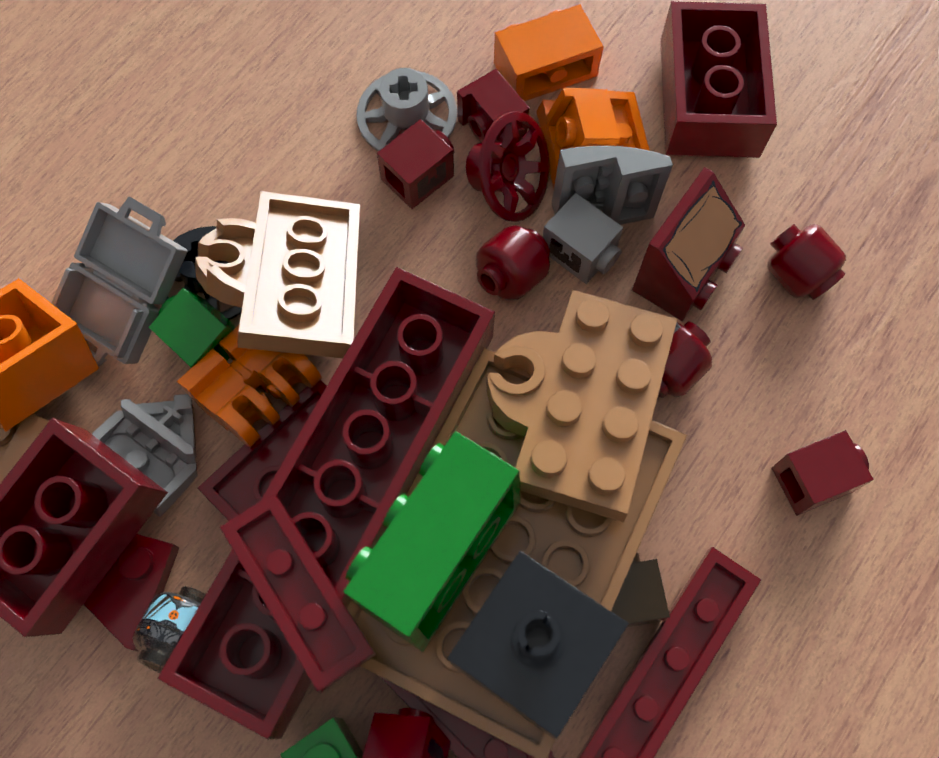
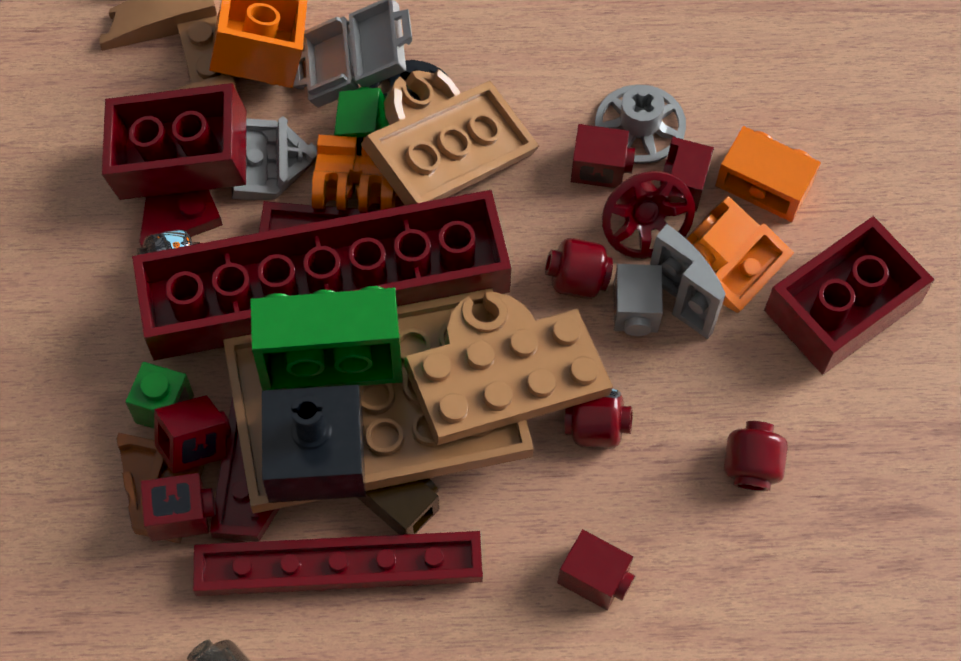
camera: 50 degrees right, 5 degrees down
(297, 592) = (236, 280): dark red plate -> none
(691, 249) = (688, 367): slope -> none

